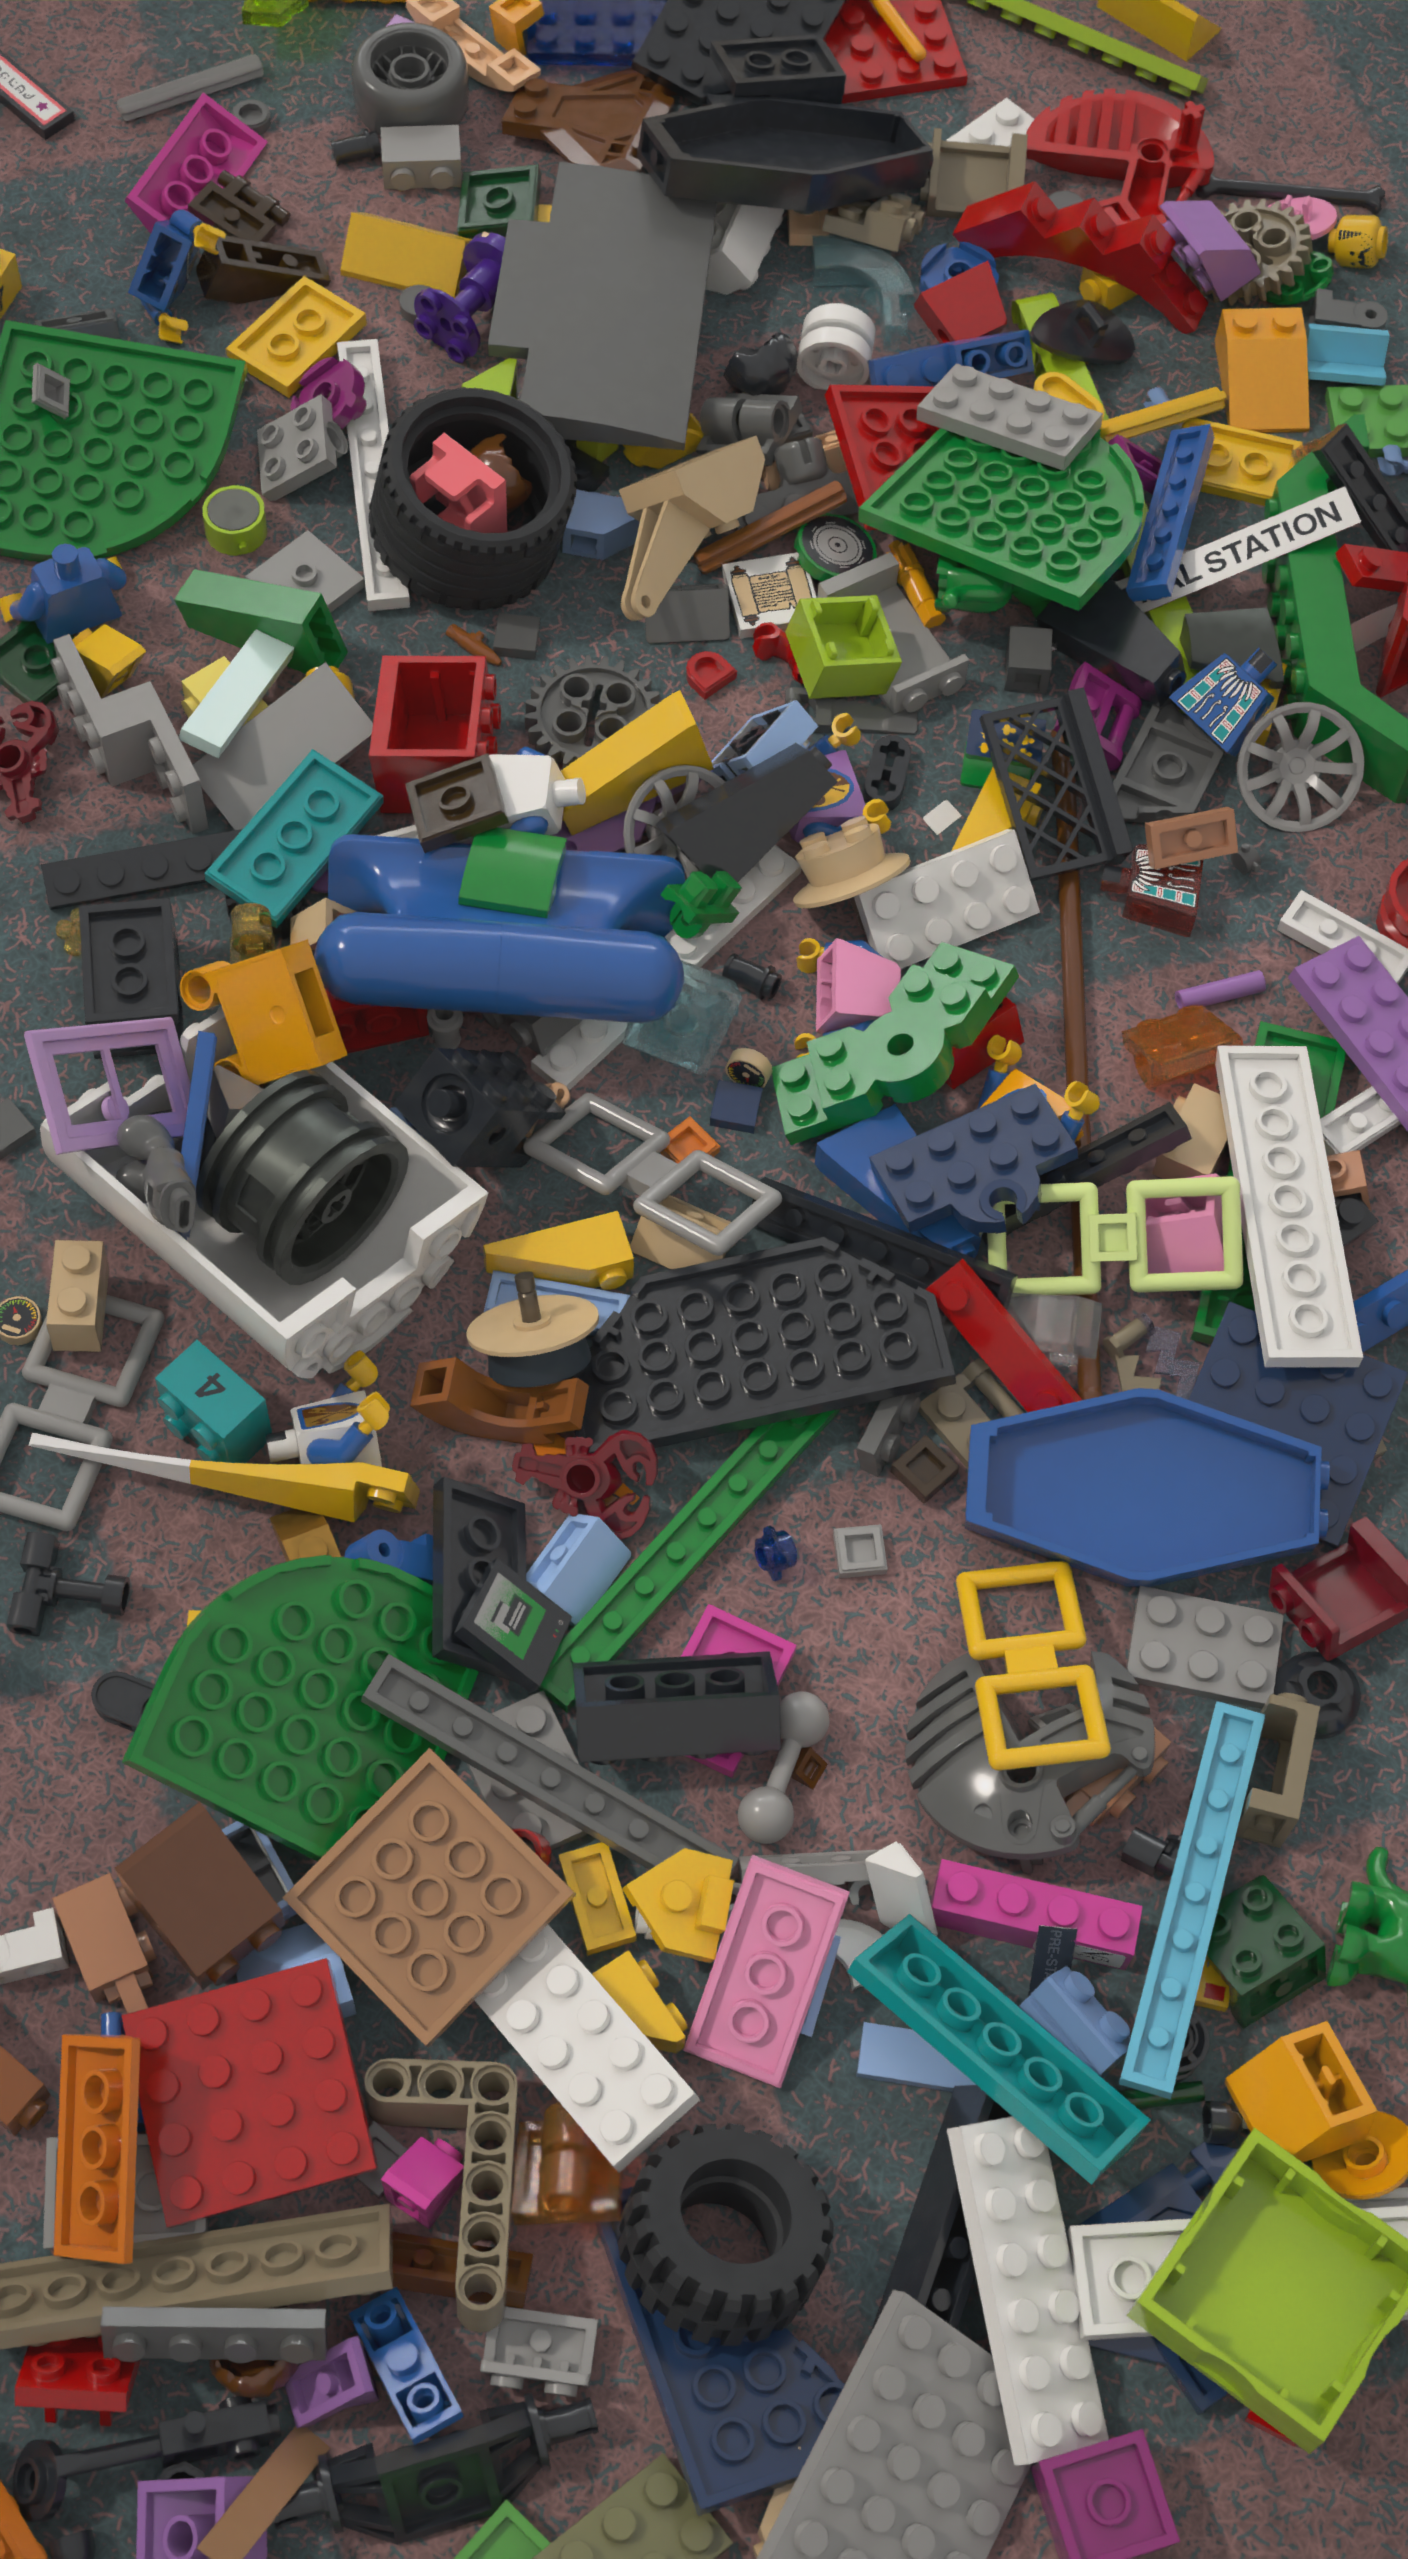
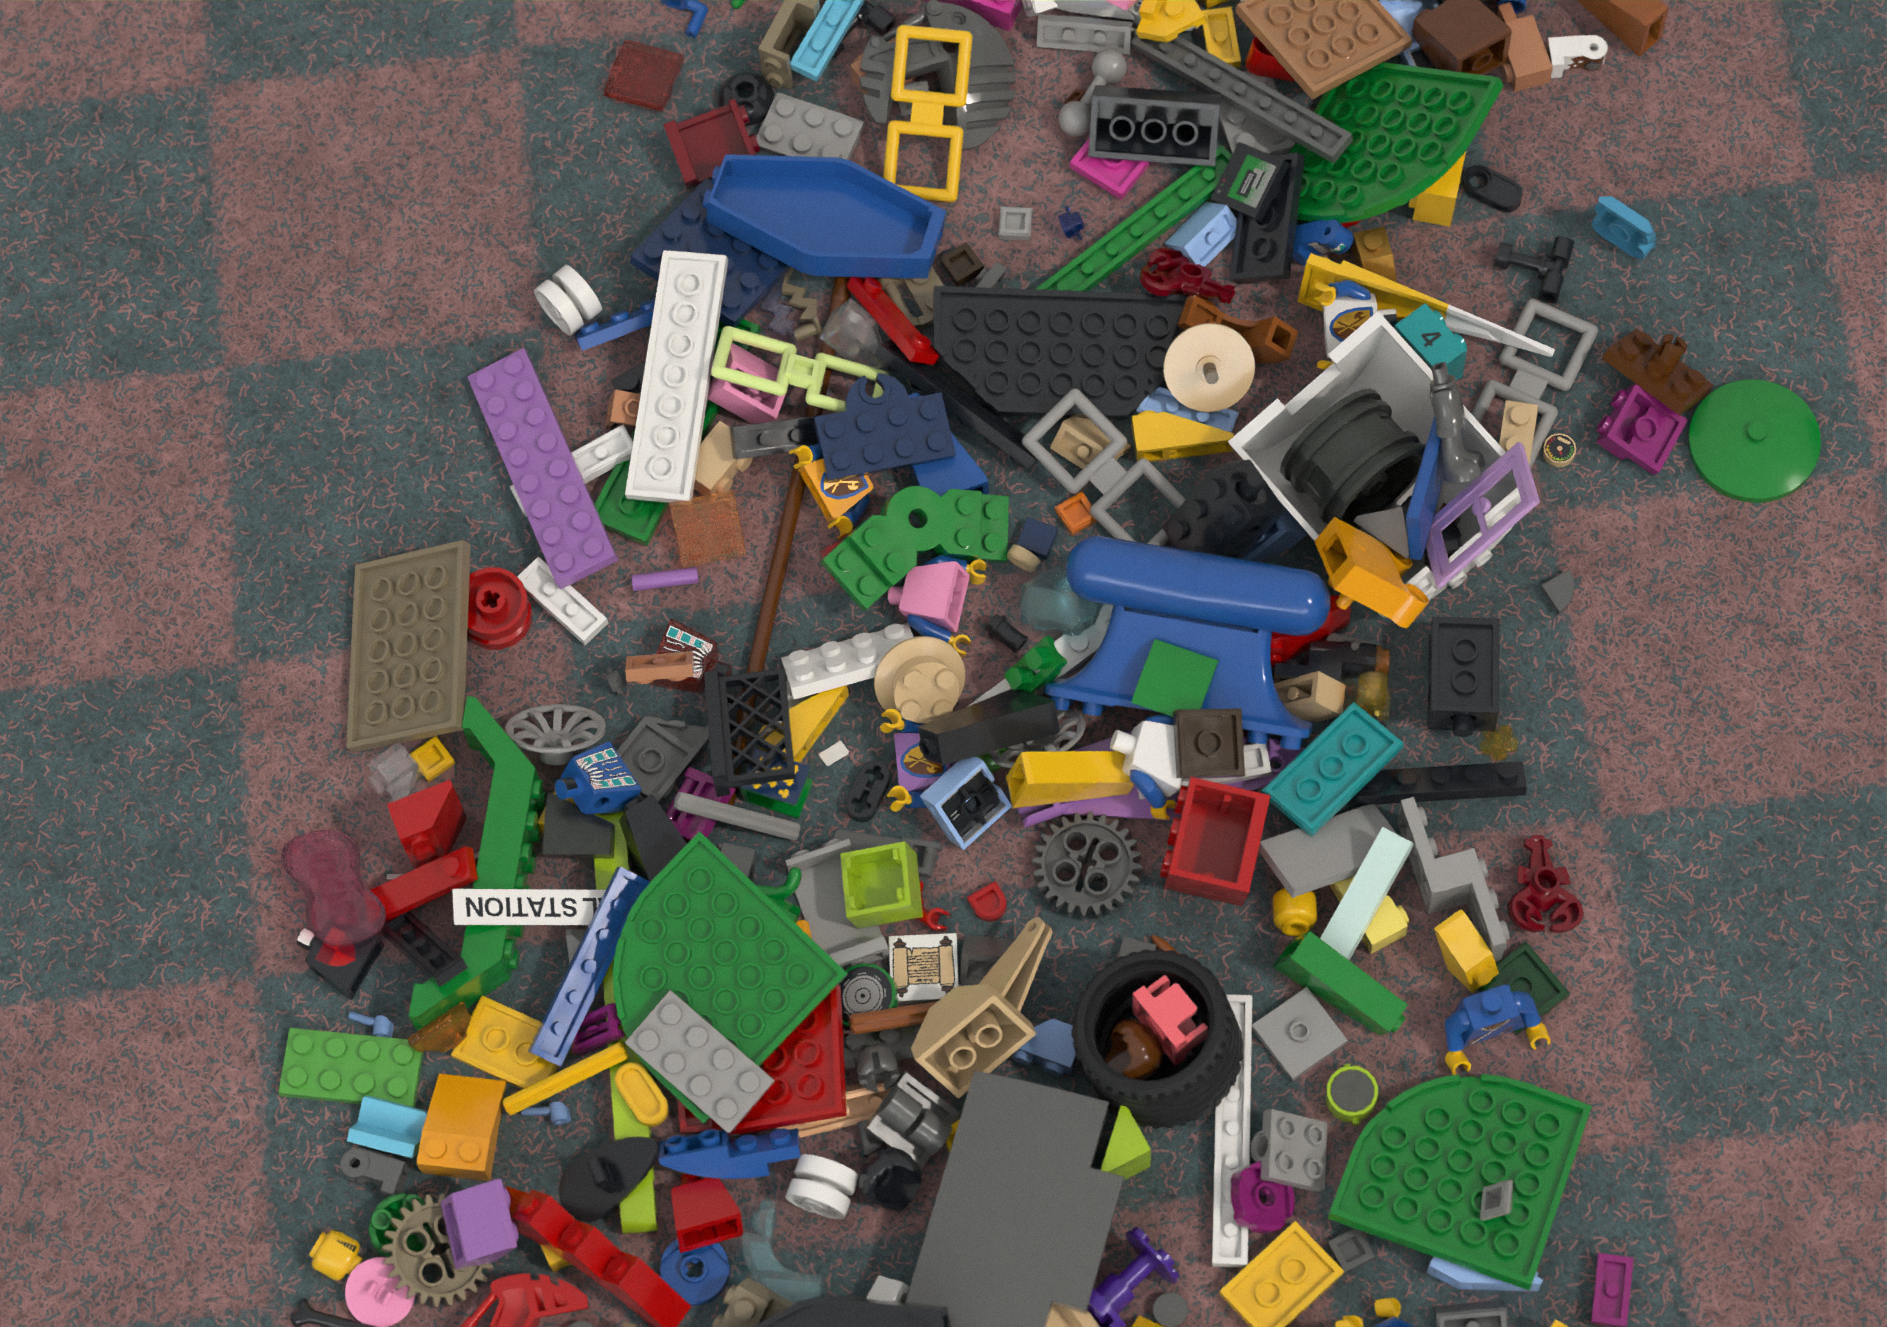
camera: 160 degrees left, 5 degrees up
(1090, 677) = (737, 816): none -> light grey axle

